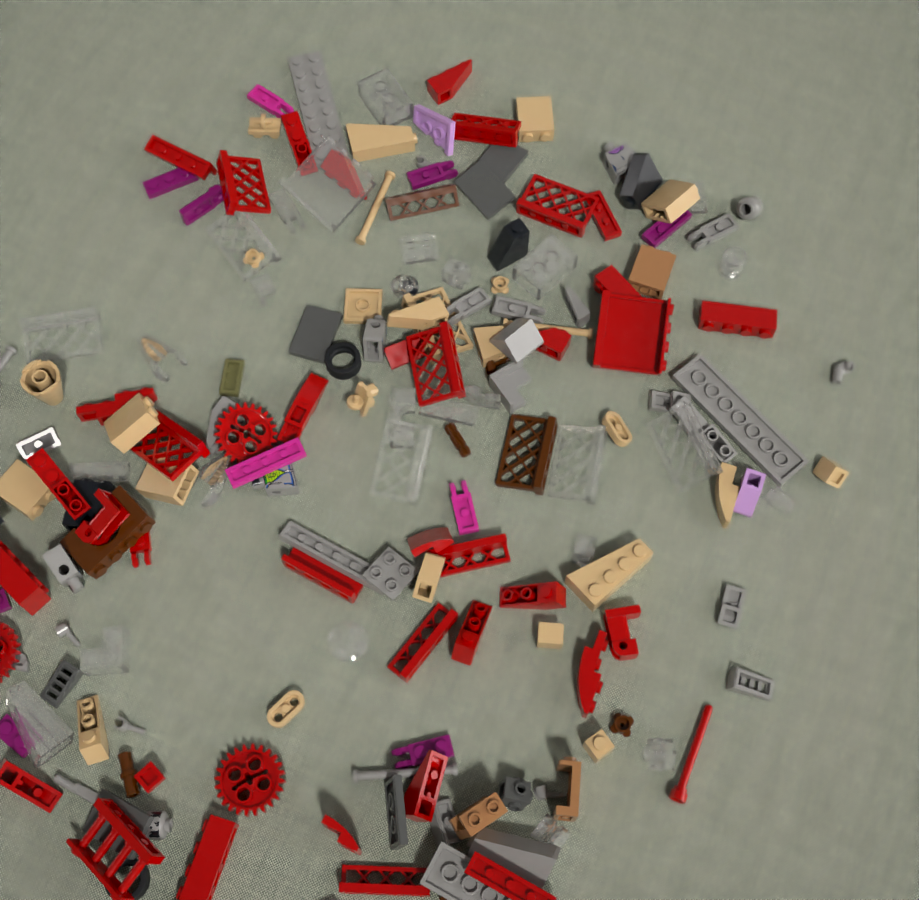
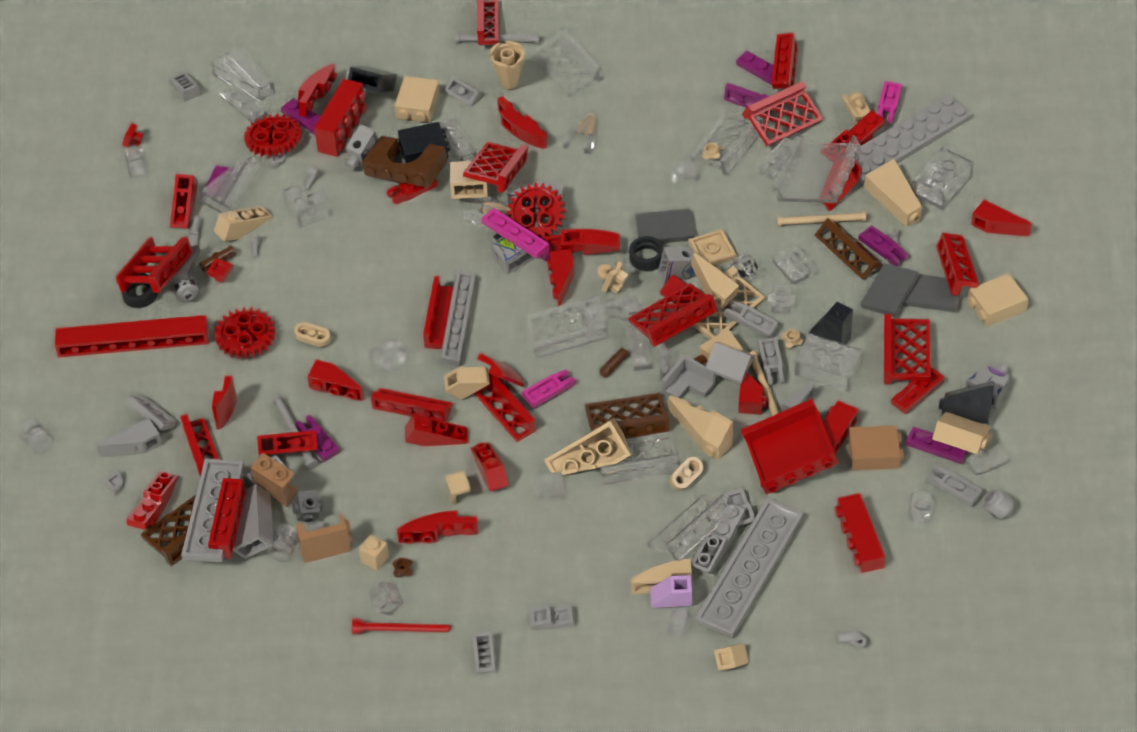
camera: 70 degrees right, 15 degrees down
(58, 484) = (427, 112): red slope -> none
(71, 682) = (277, 187): dark grey slope -> none
(105, 521) = (409, 150): red piece -> none
(131, 422) = (505, 134): tan brick -> none
(232, 377) = (588, 186): olive plate -> none
(325, 440) = (562, 270): none -> red slope
(358, 709) = (332, 380): none -> red slope
(391, 573) = (458, 354): light grey hinge -> none
(396, 813) = (263, 425): dark grey tile -> none
(437, 126) = (936, 227): lavender wing -> none
(562, 491) = (595, 449): none -> tan wedge
(581, 393) = (709, 430): none -> tan wedge
(603, 577) = (536, 511): tan wedge -> none
(618, 631) = (486, 535): red piece -> none

